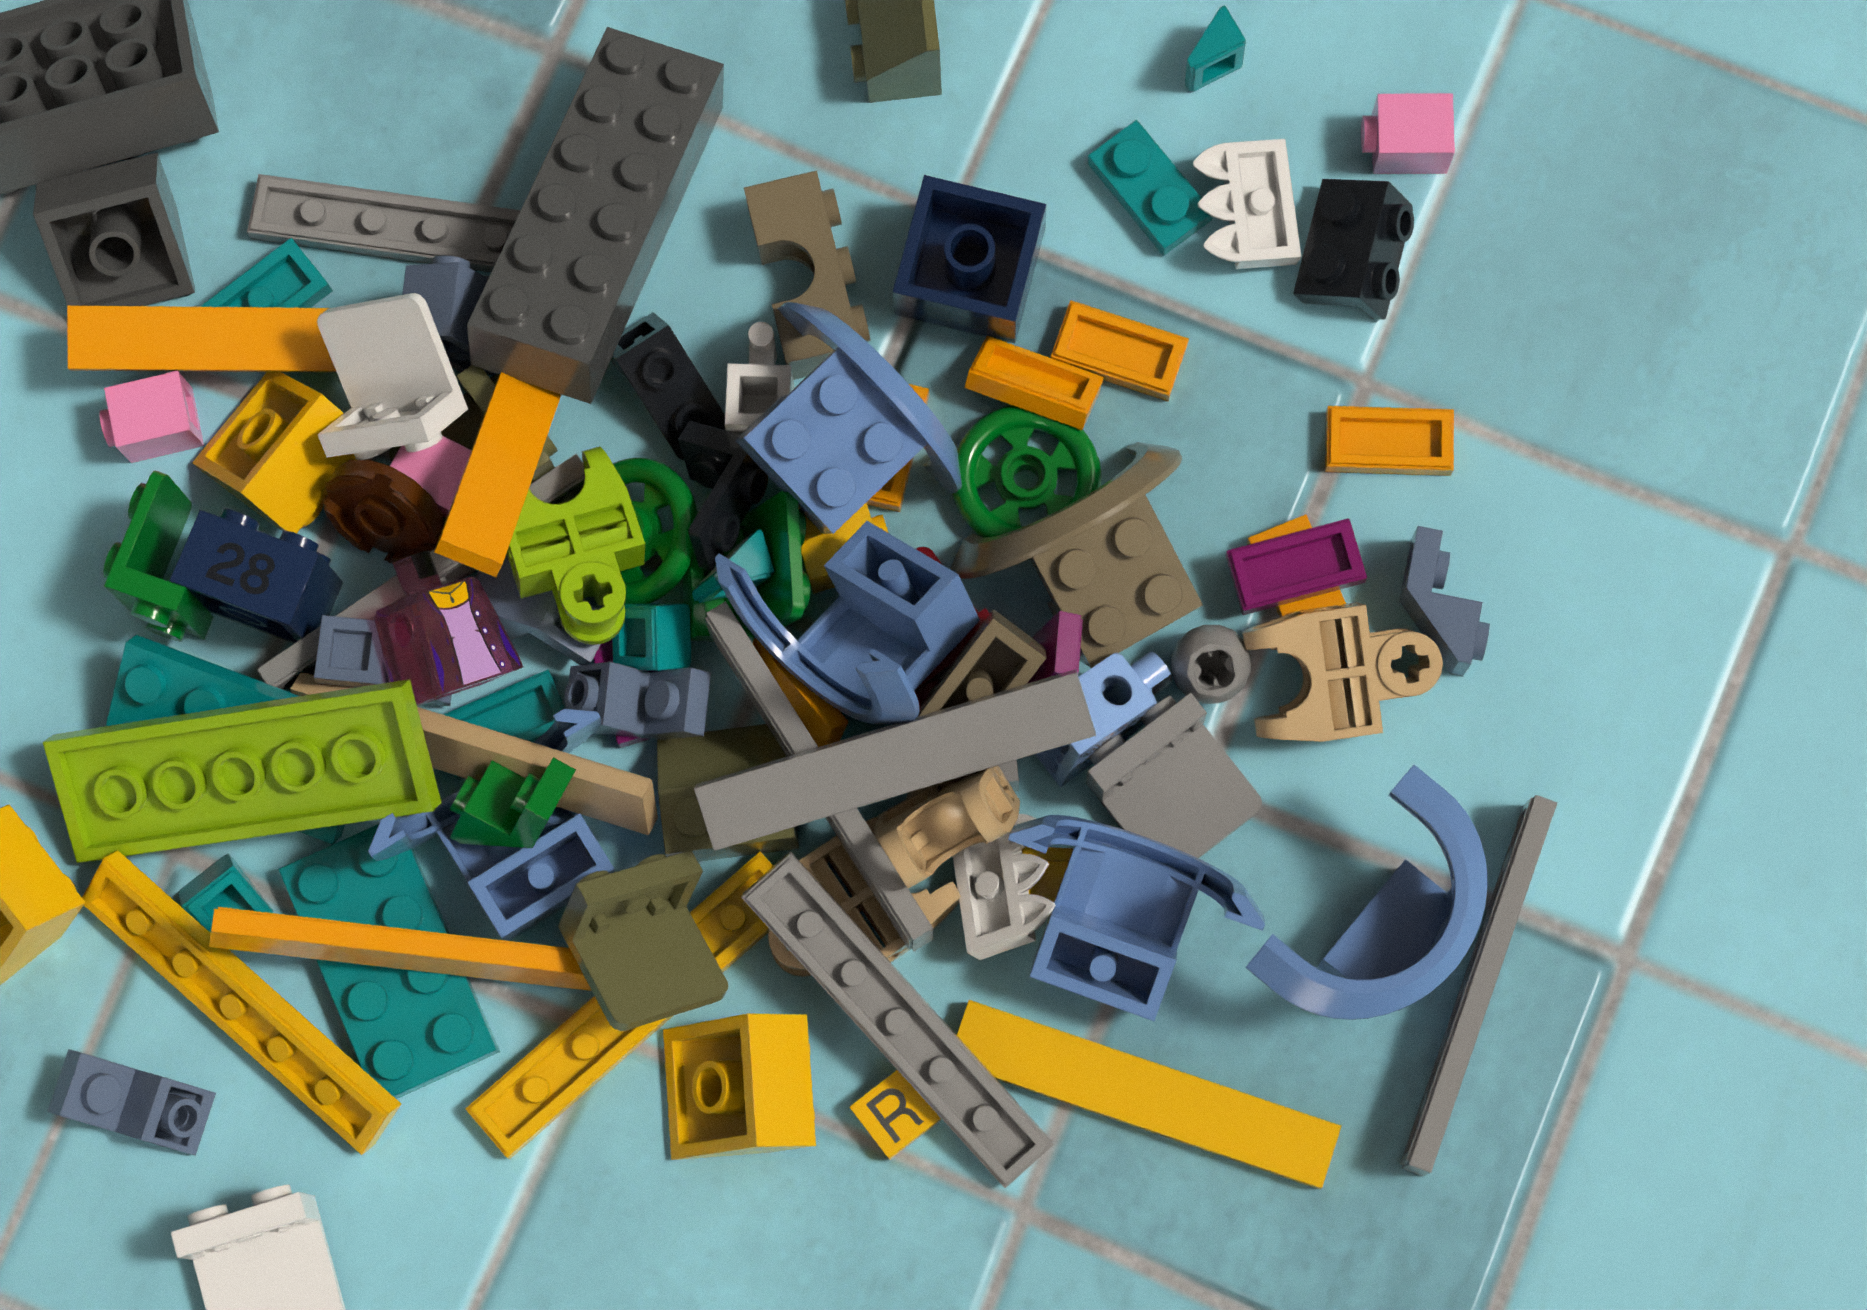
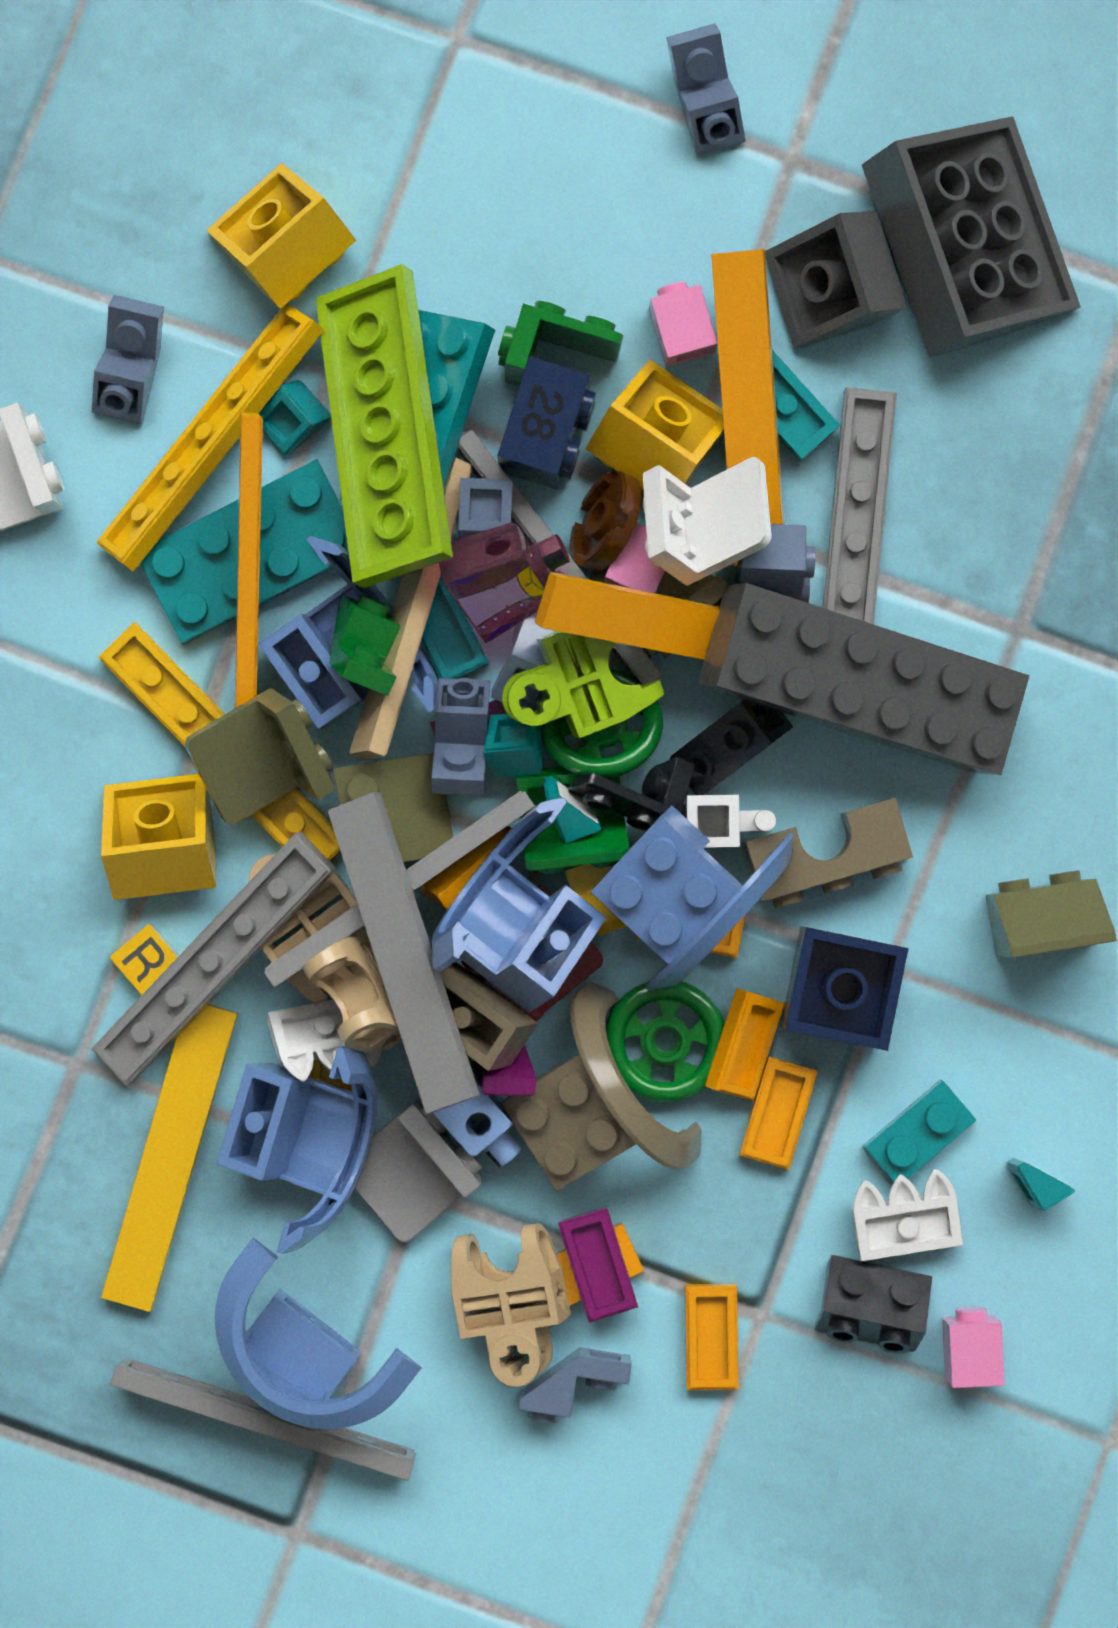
camera: 80 degrees right, 10 degrees up
(1211, 664) = (513, 1197): light grey piece -> none

